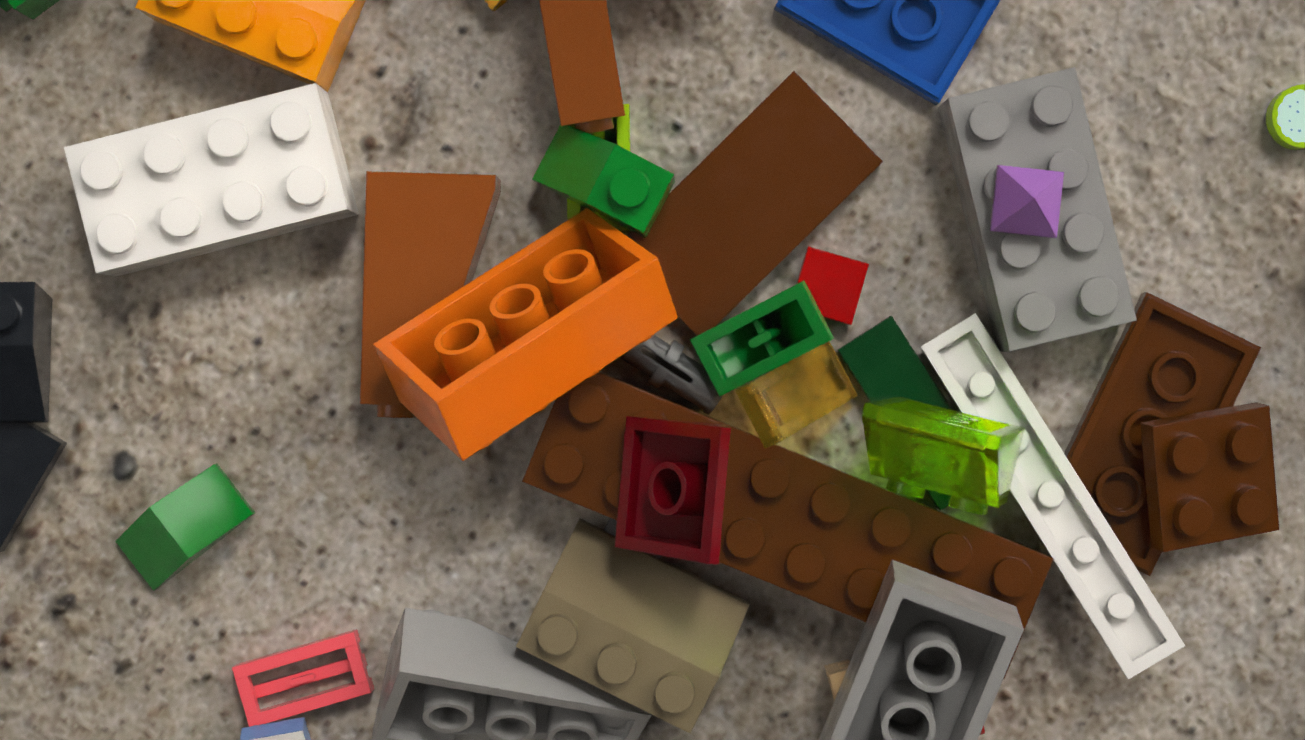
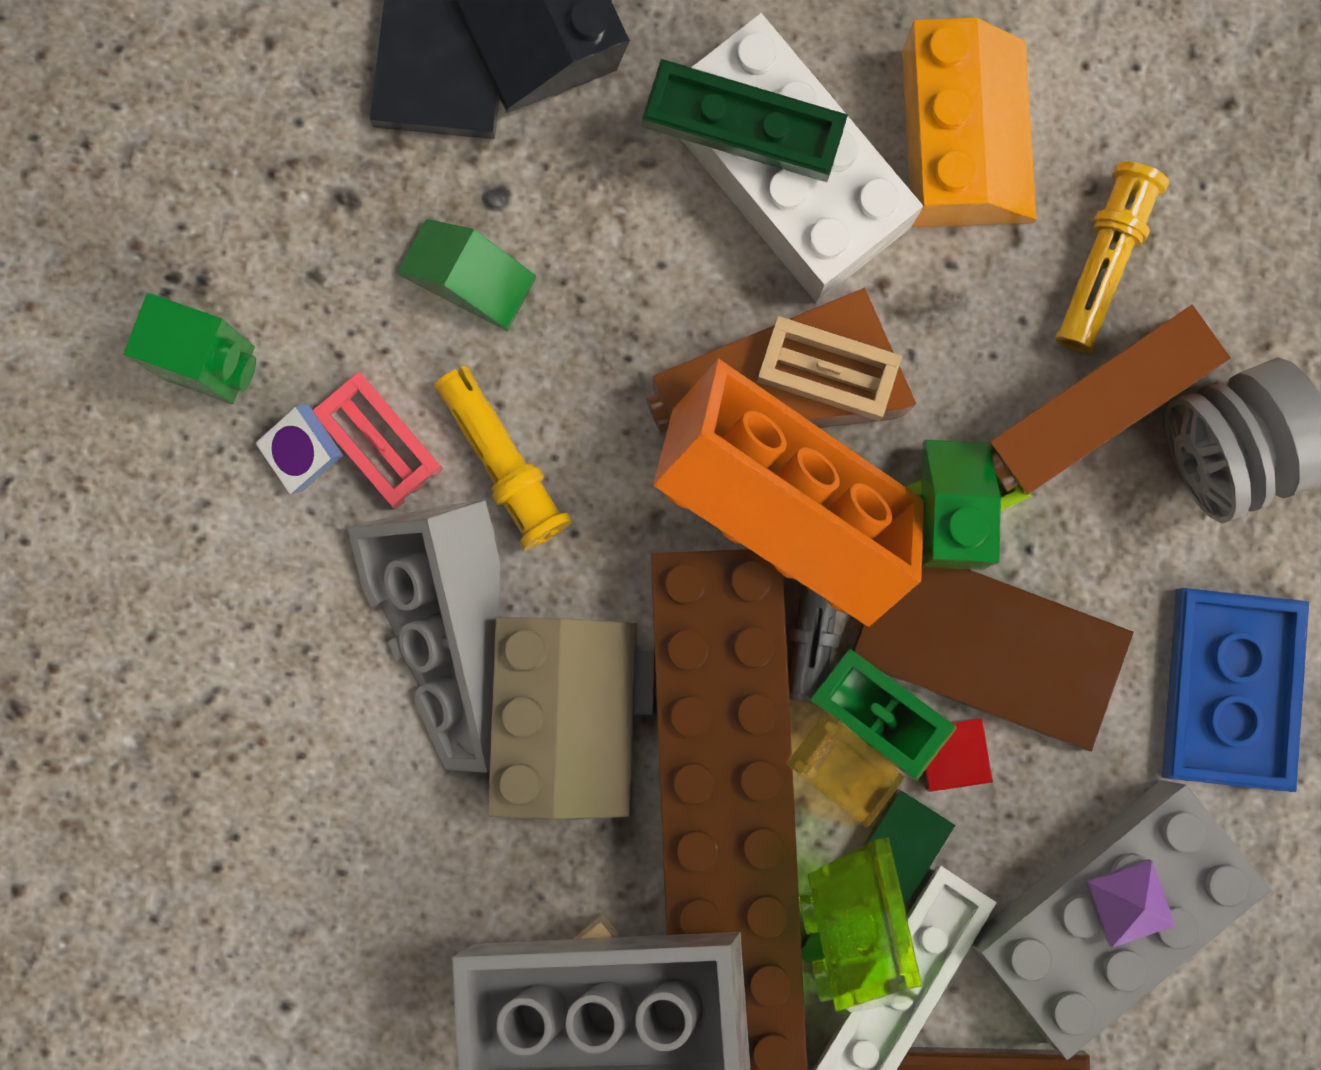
camera: 65 degrees right, 5 degrees down
(160, 214) = (744, 120): none -> dark green tile
(399, 570) = (515, 481): none -> yellow pin
(406, 226) = (838, 345): none -> tan tile
(673, 488) = (714, 694): dark red slope -> none

